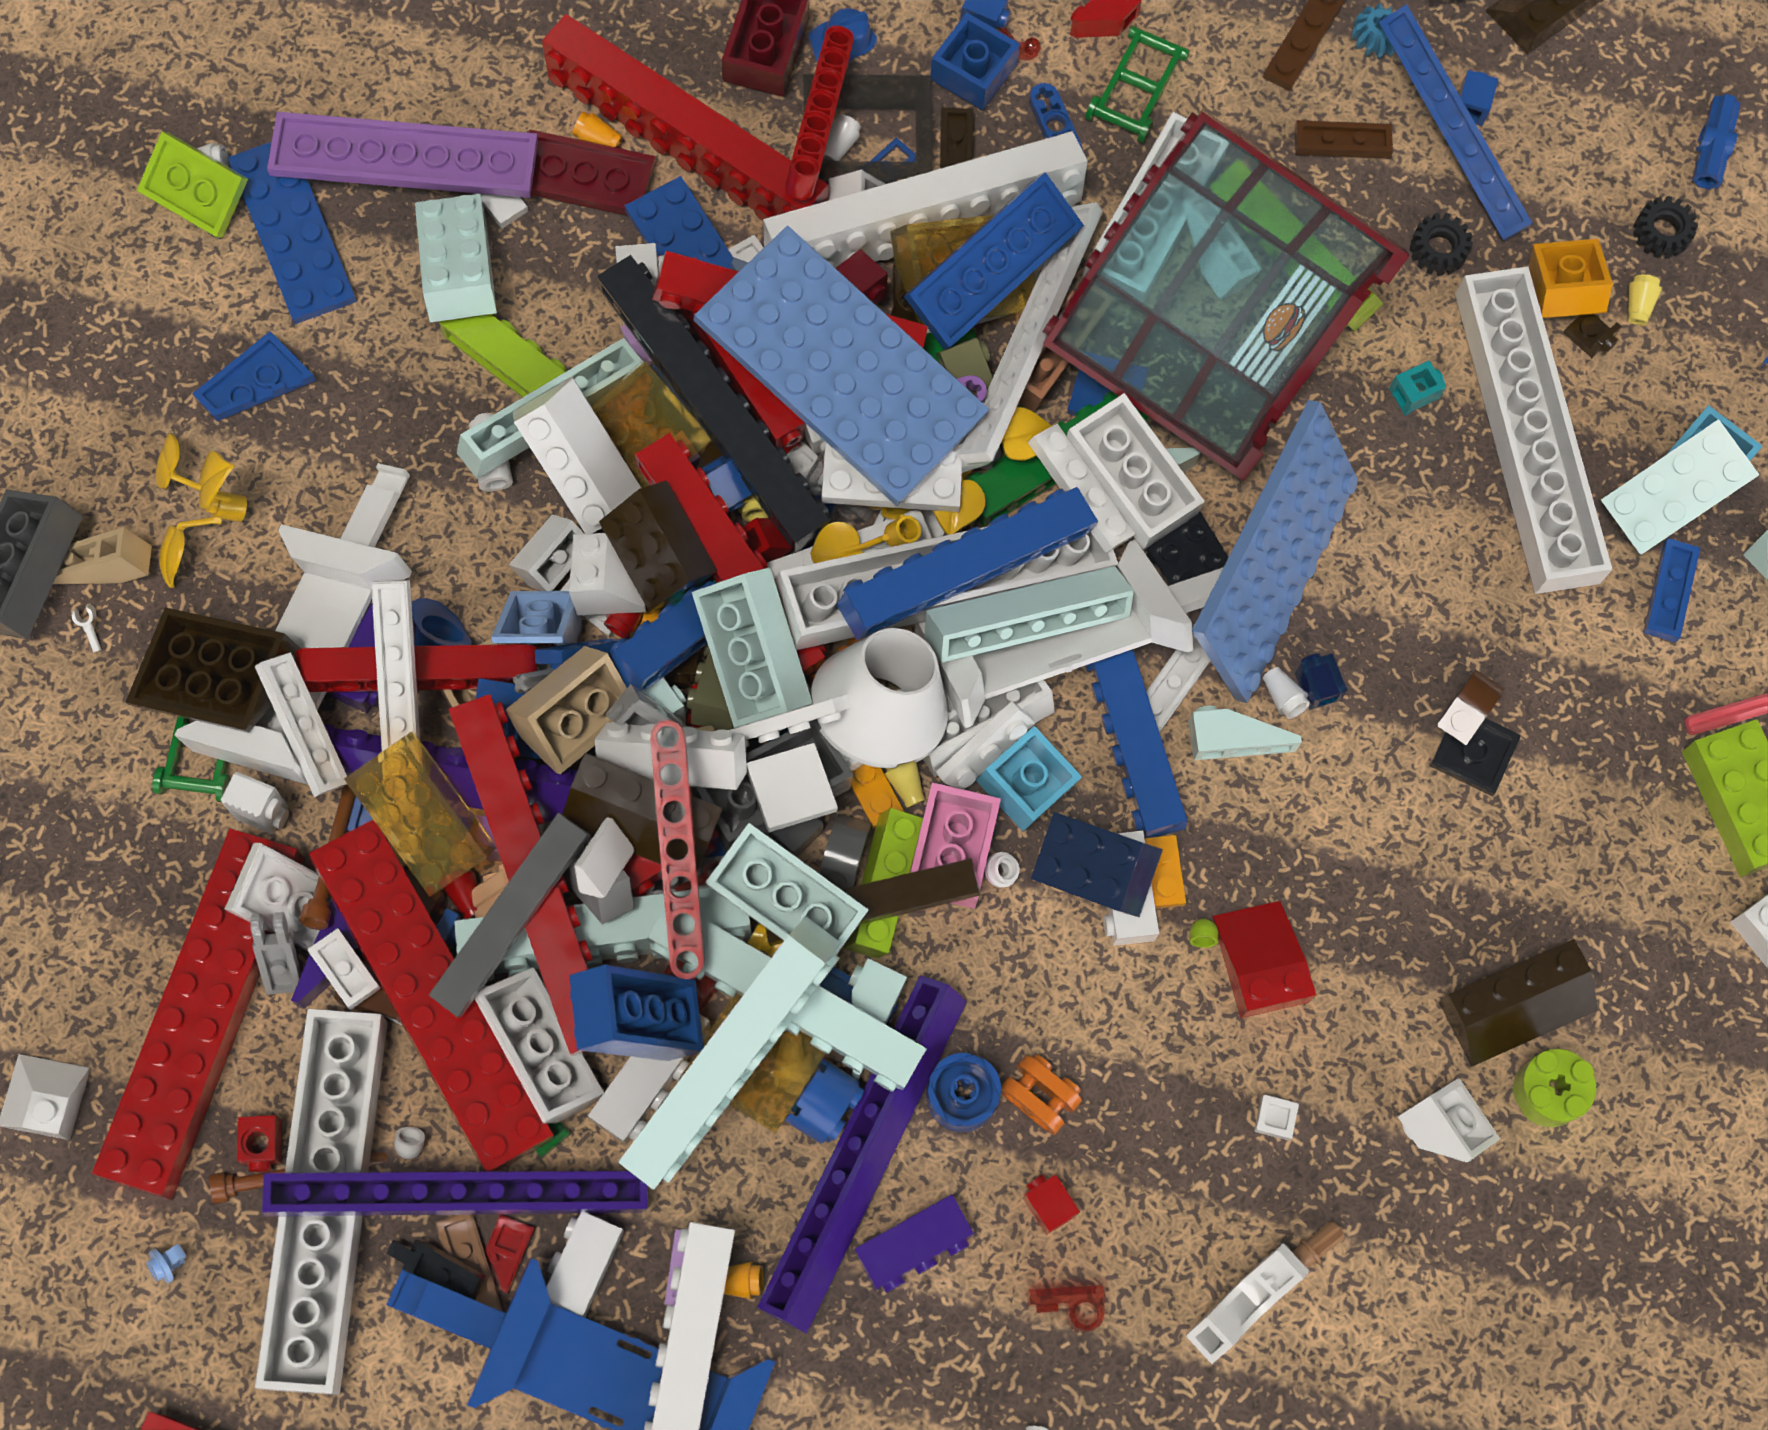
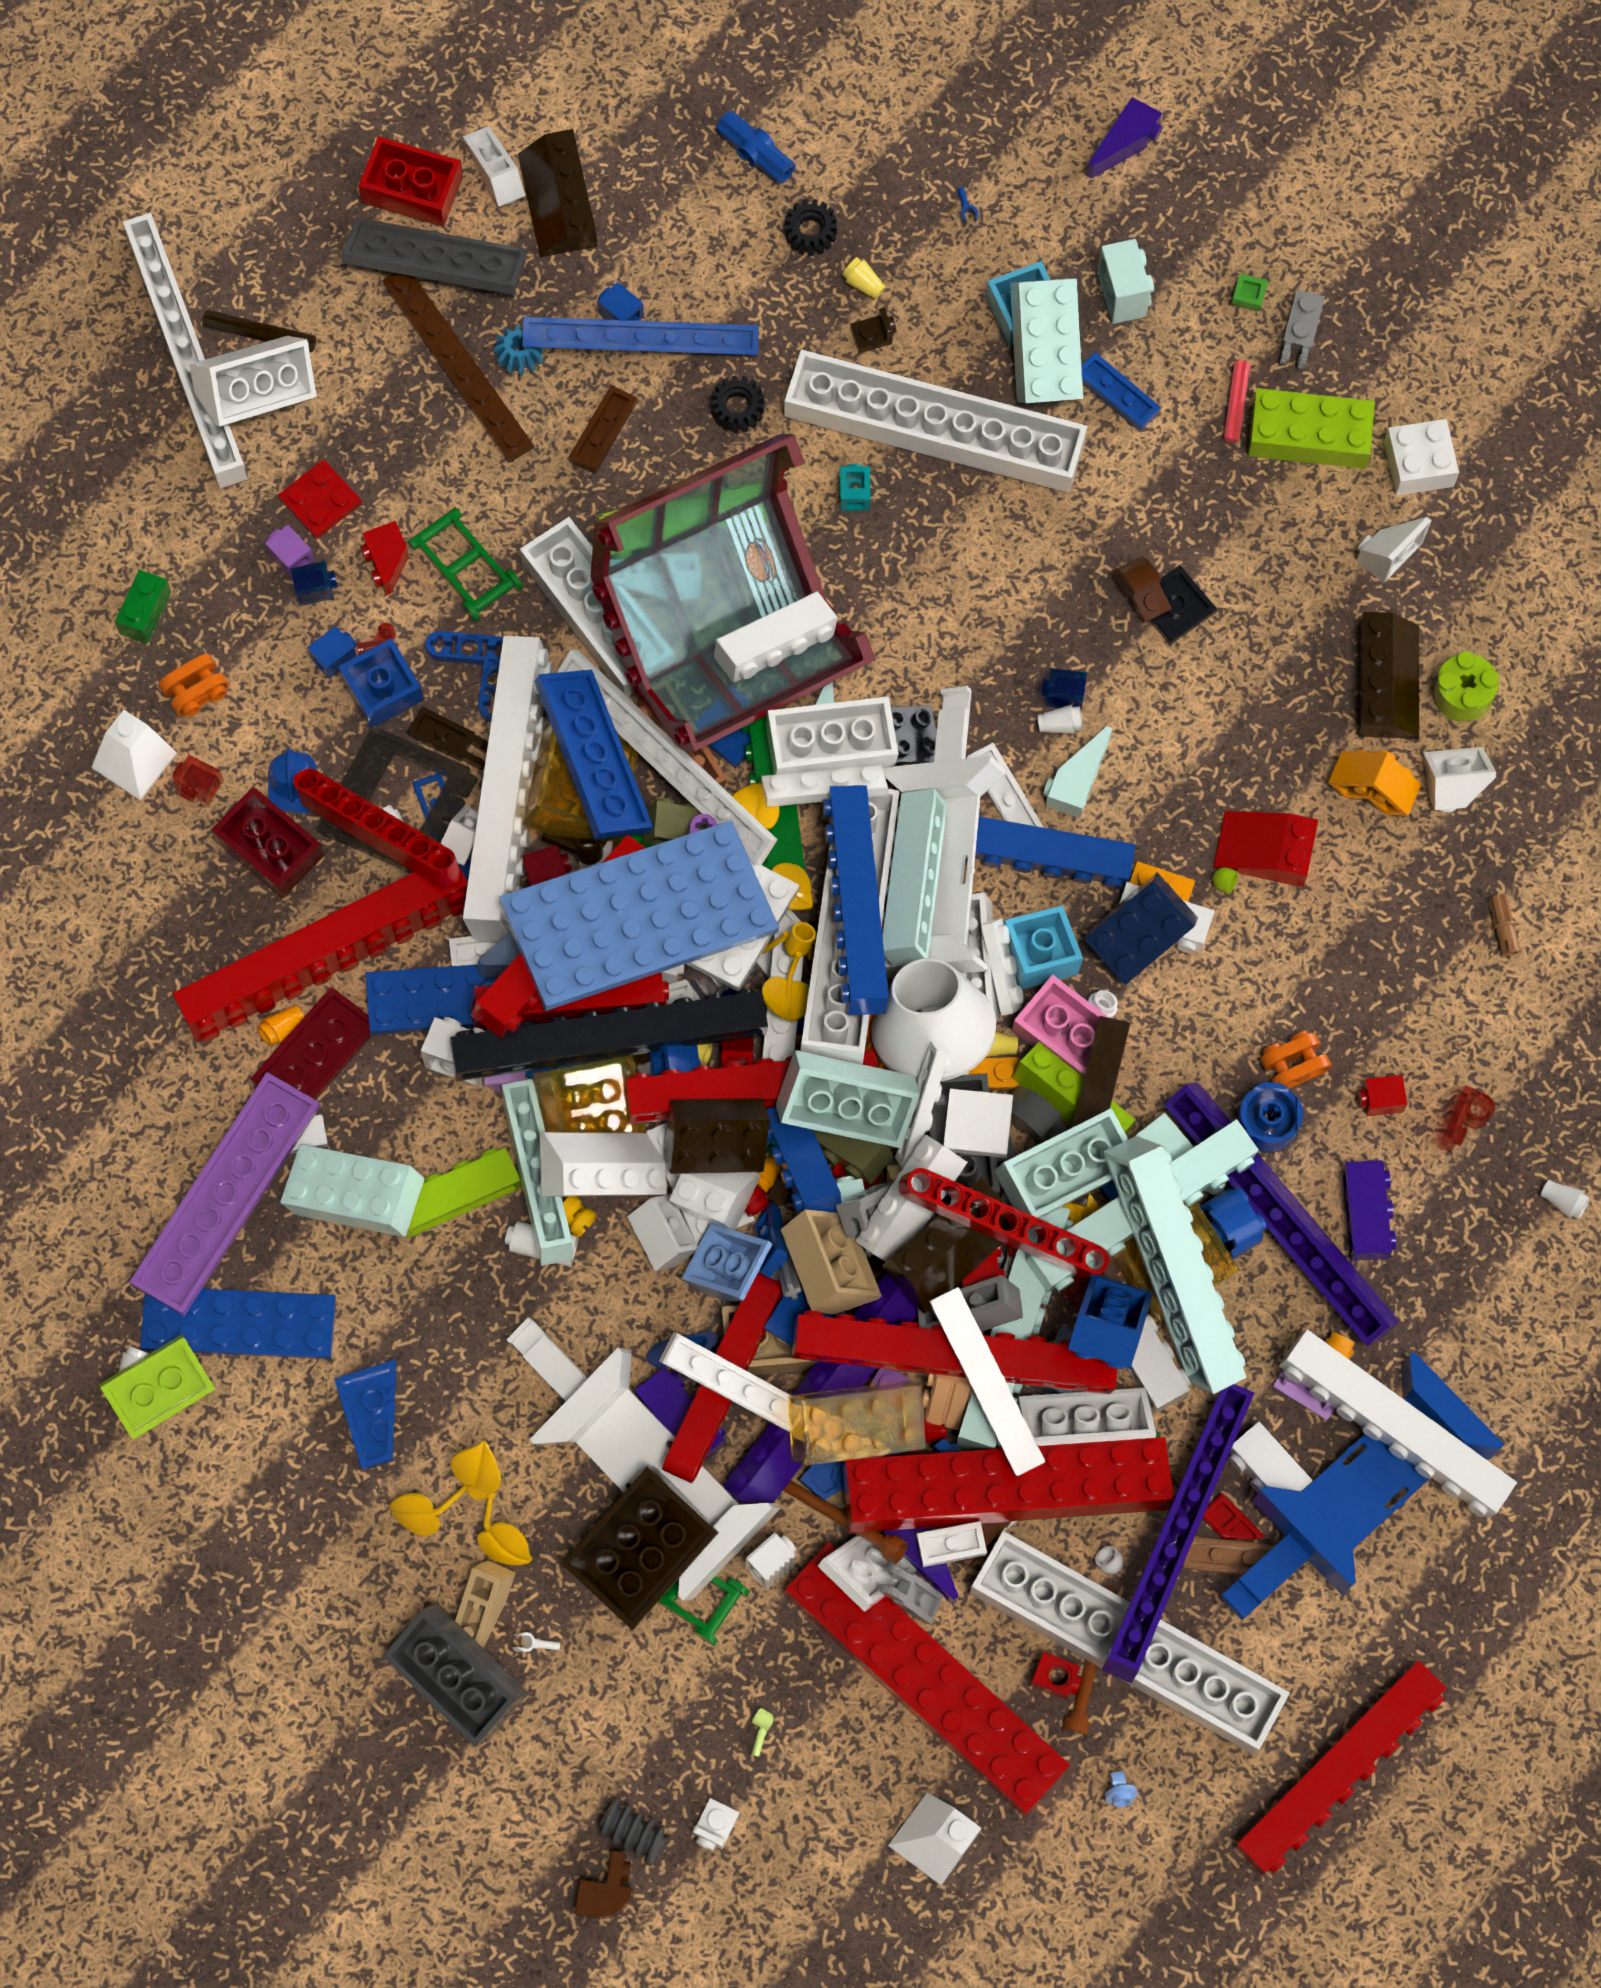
camera: 60 degrees left, 0 degrees up
(98, 875) = (763, 1720): none -> yellowish green hand
(302, 724) = (733, 1485): white plate -> none
(437, 1267) = (1220, 1578): black hinge -> none
(529, 470) = (578, 1215): none -> yellow wheel
(603, 860) = (981, 1287): white slope -> none
(1212, 375) = (775, 637): none -> white brick
(1246, 1303) = (1520, 987): white arch -> none
(1276, 553) = (955, 664): medium blue plate -> none
(1276, 1117) = (1393, 898): white plate -> none
(1396, 1039) = (1376, 778): none -> light orange brick
(1570, 278) = (823, 322): light orange brick -> none
(1666, 941) = (1392, 547): none -> white slope

